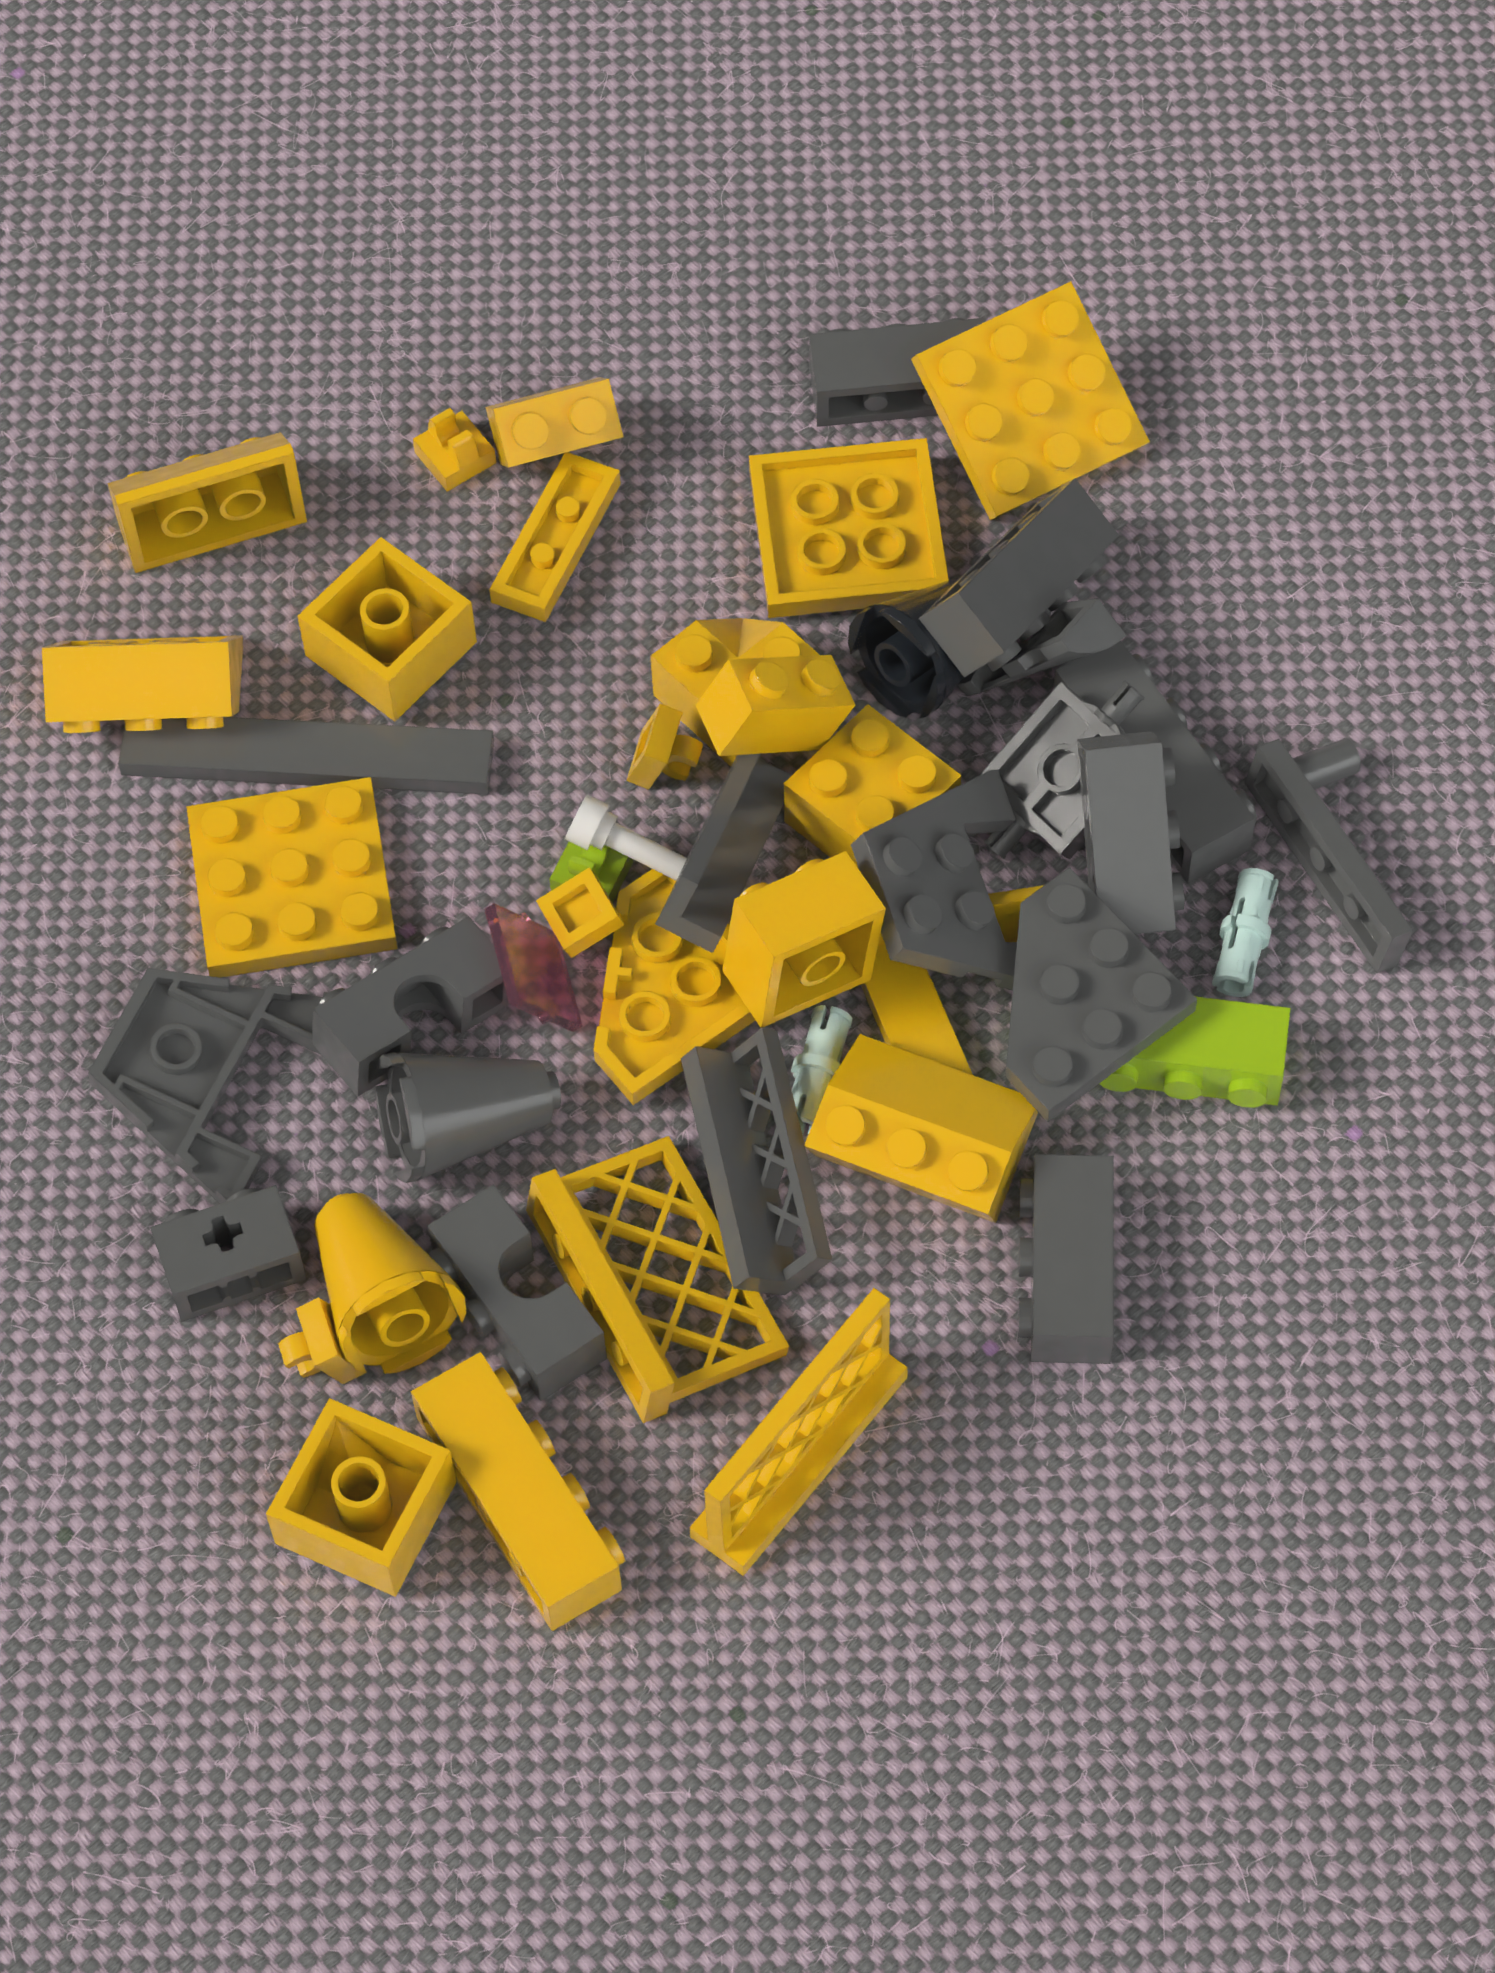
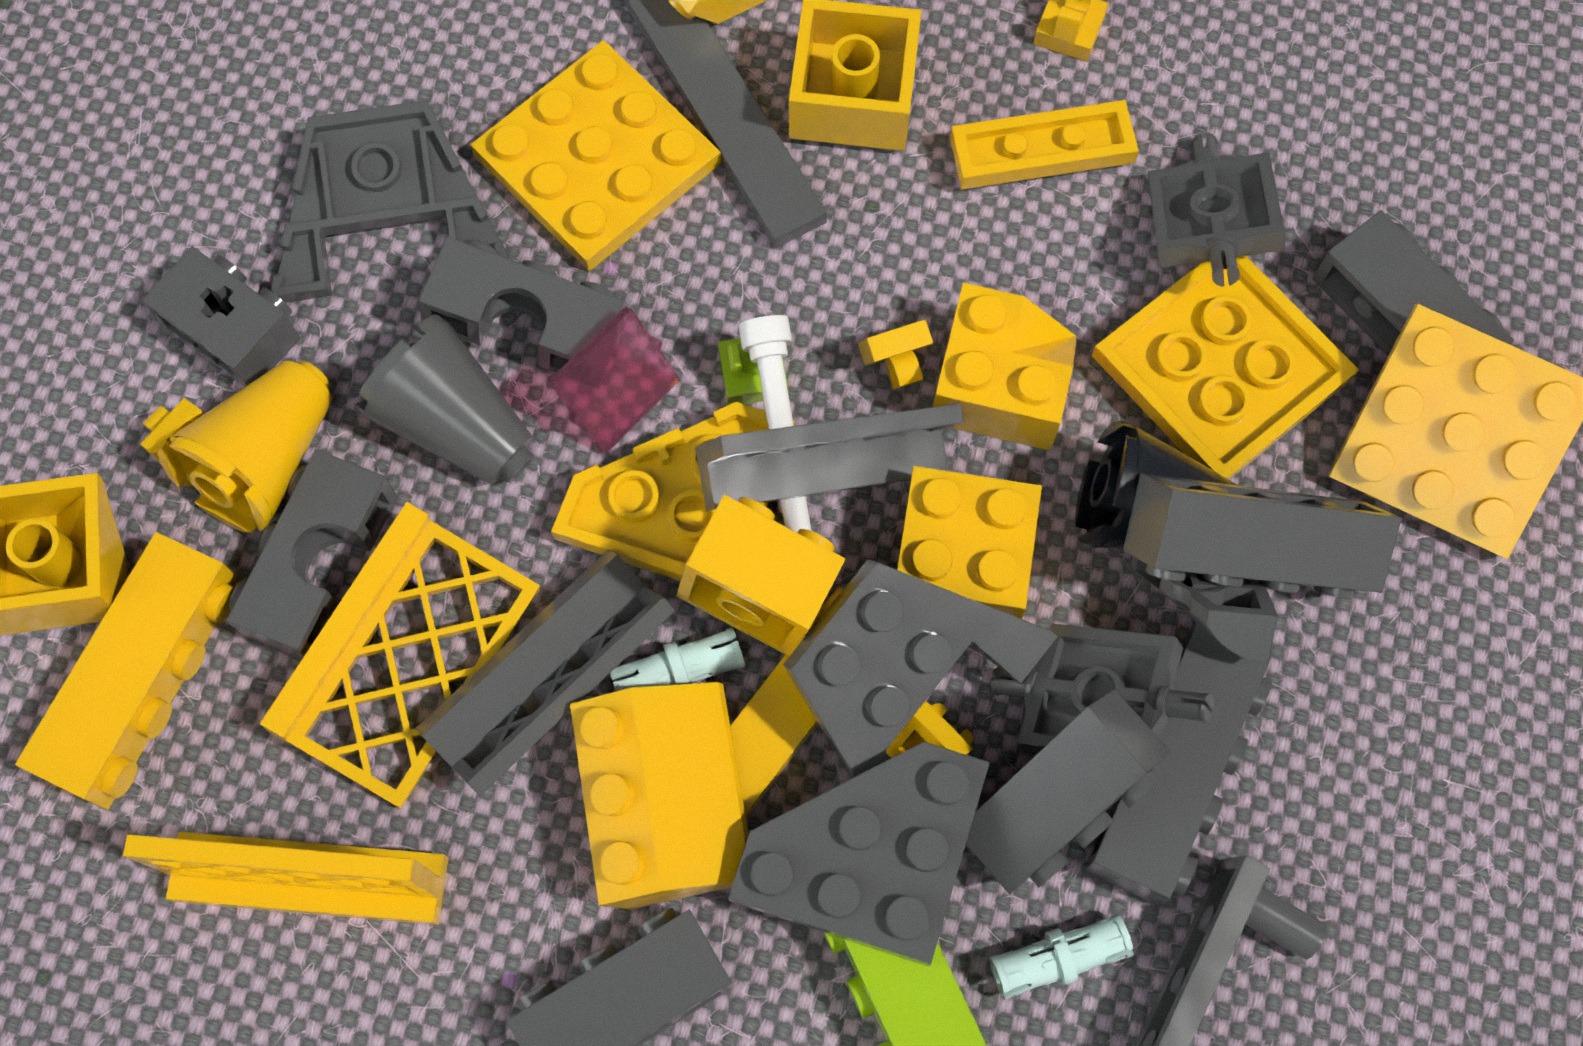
camera: 55 degrees right, 10 degrees up
(554, 422) = (1142, 72): yellow brick -> none
(580, 912) = (691, 384): yellow tile -> none
(717, 447) = (1216, 210): none -> dark grey plate
(774, 704) = (966, 408): yellow brick -> none

